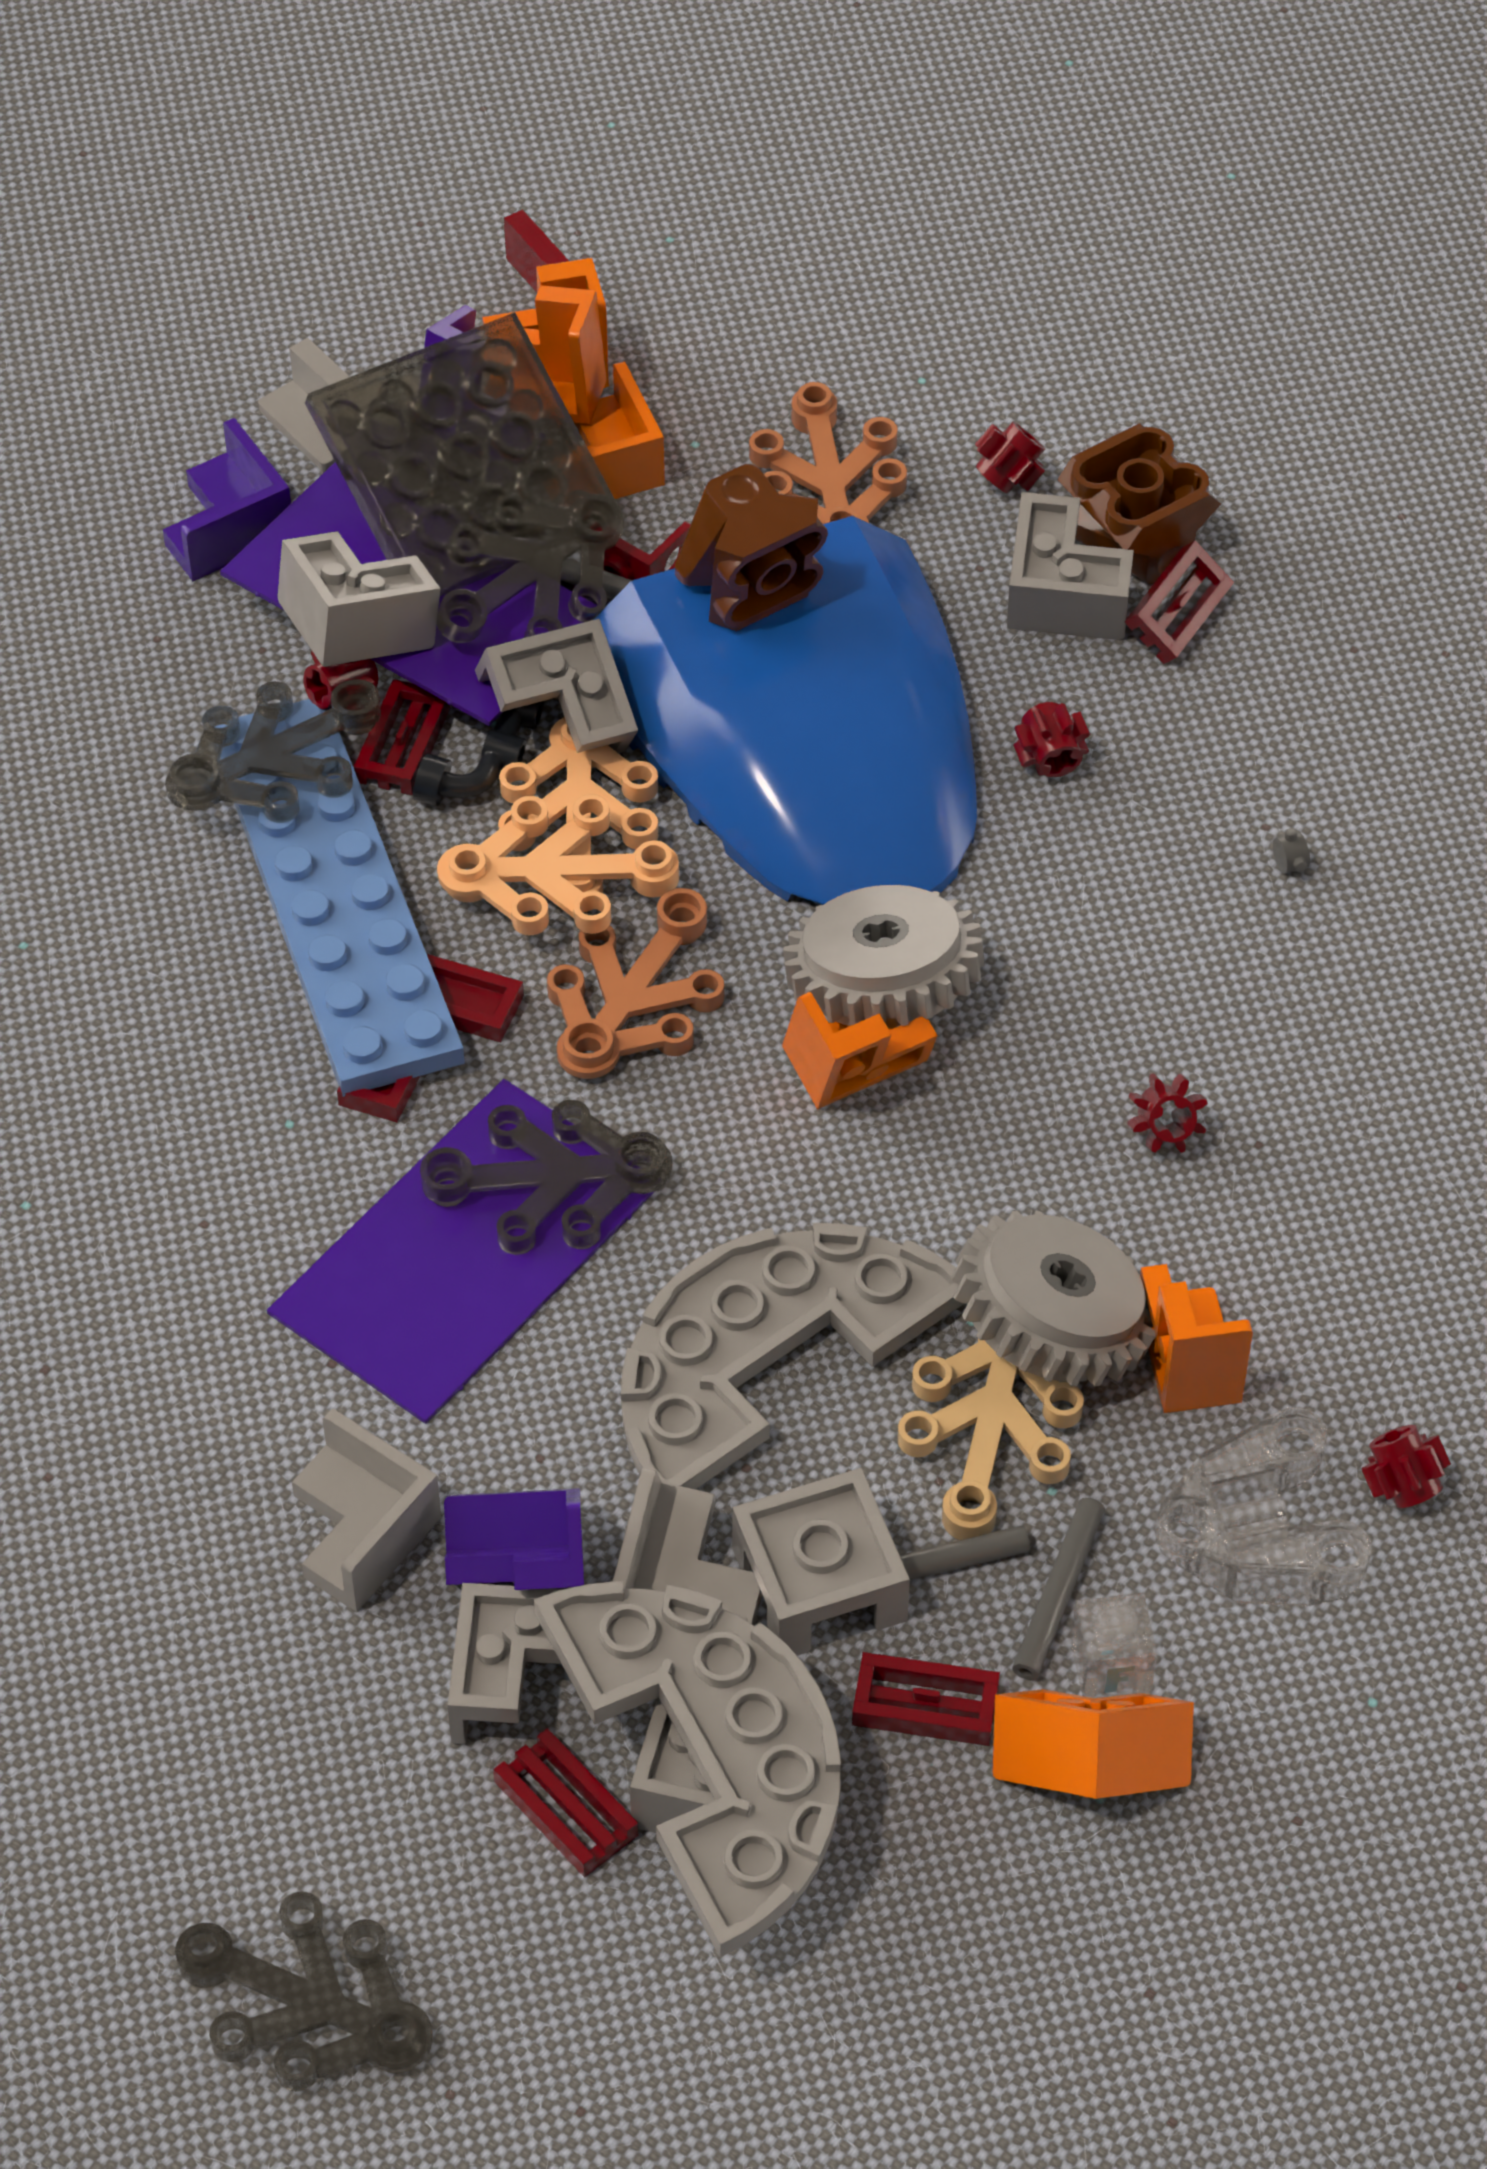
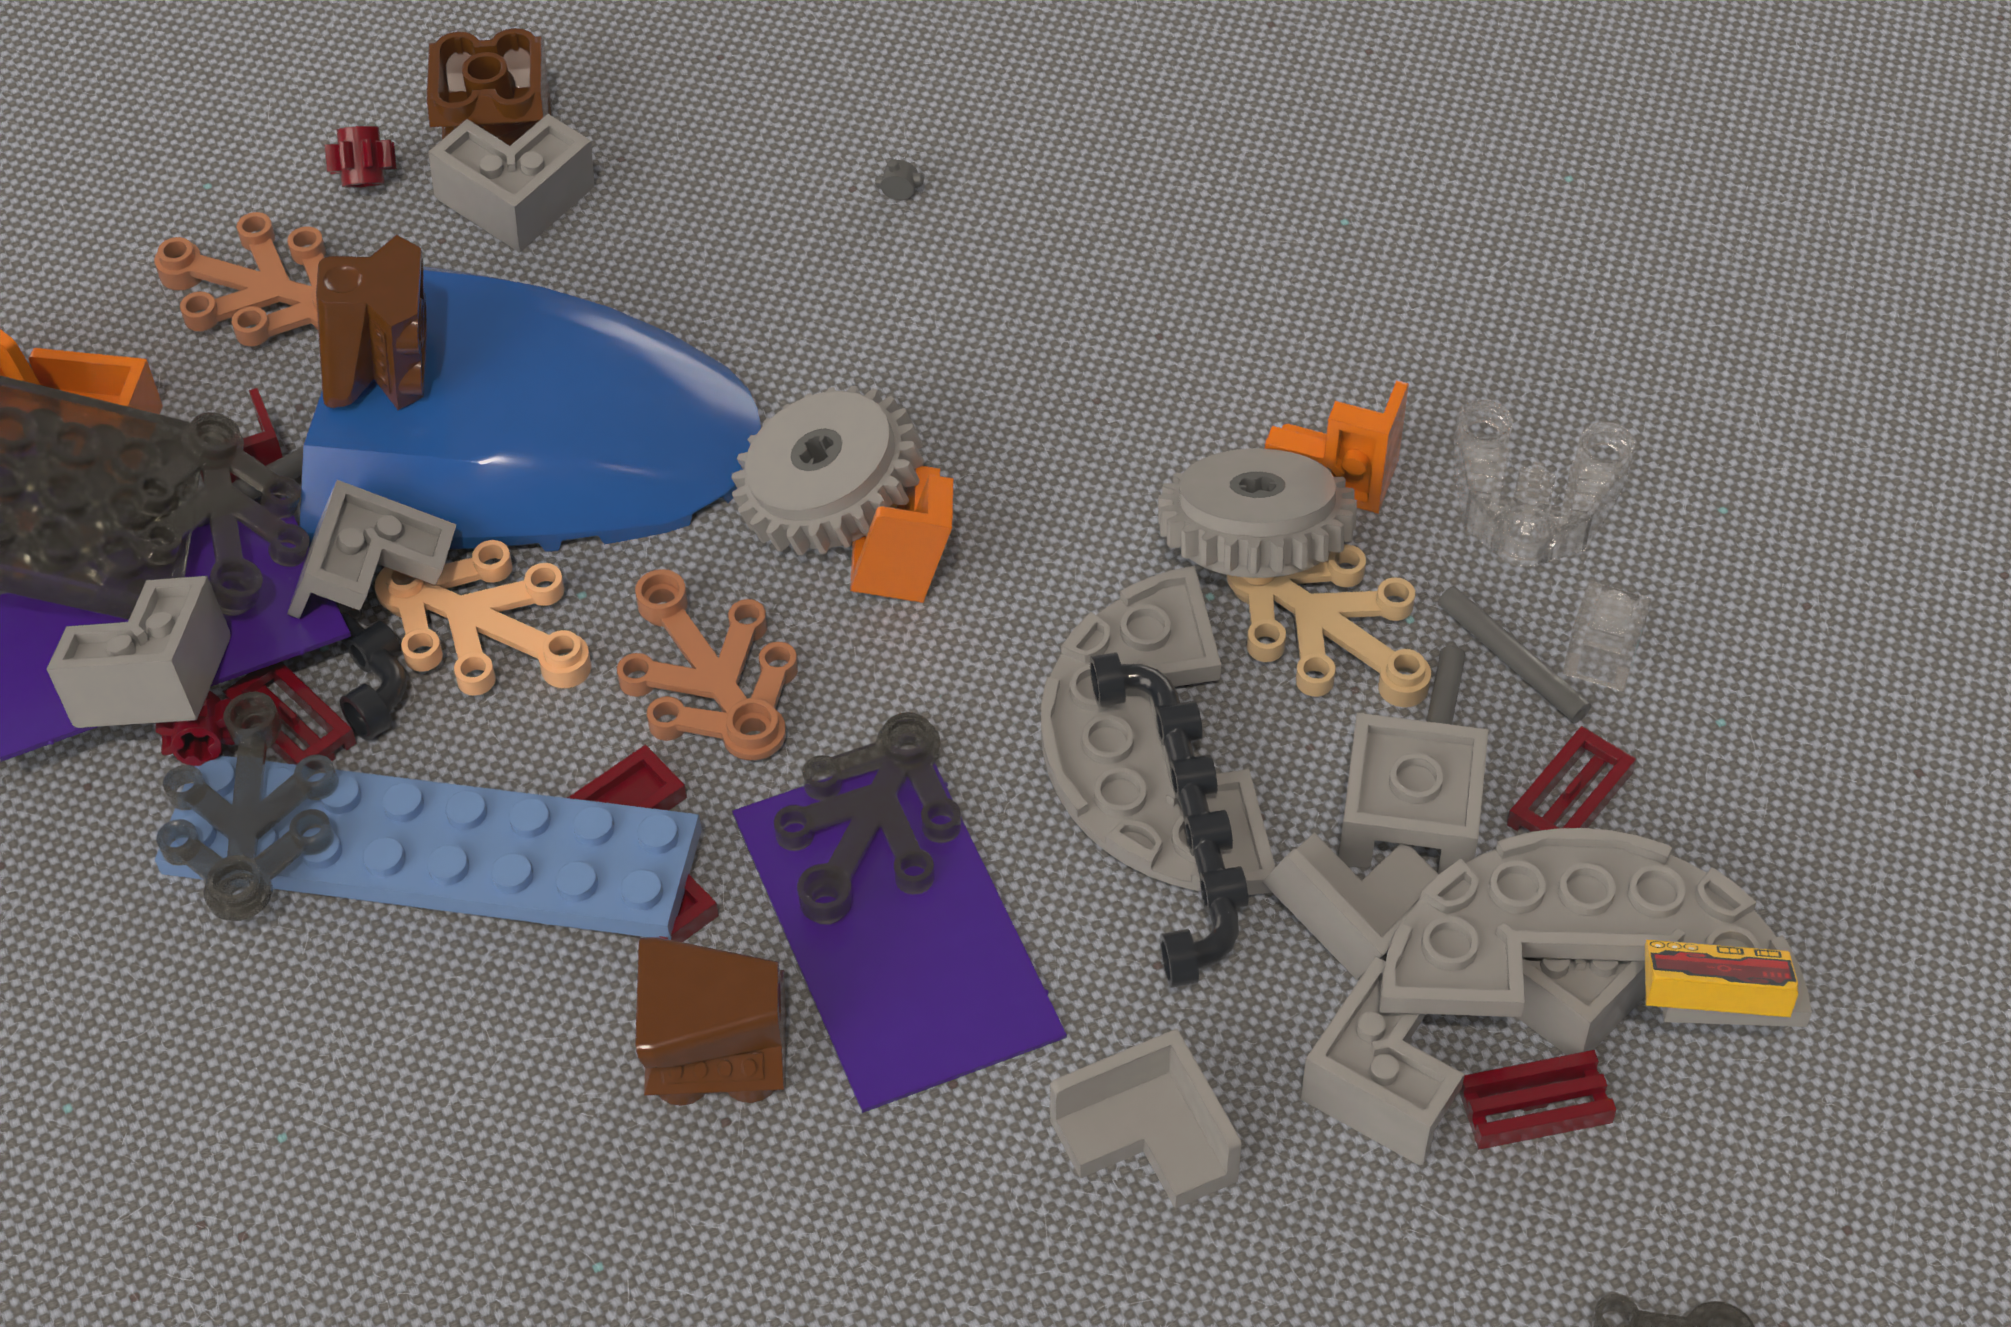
camera: 60 degrees left, 0 degrees up
(265, 1154) = (709, 1022): none -> reddish brown piece
(515, 1538) = (1273, 991): dark purple panel -> none
(550, 867) = (547, 664): light nougat plant -> none
(666, 1412) = (1205, 830): none -> black bar
(704, 1847) = (1720, 978): none -> yellow slope
(1051, 739) = (678, 265): dark red gear -> none
(1093, 1743) = (1689, 698): orange panel -> none
(1154, 629) = (601, 123): dark red tile -> none
(1183, 1116) = (1110, 365): dark red gear -> none
(1406, 1466) = (1541, 377): dark red gear -> none

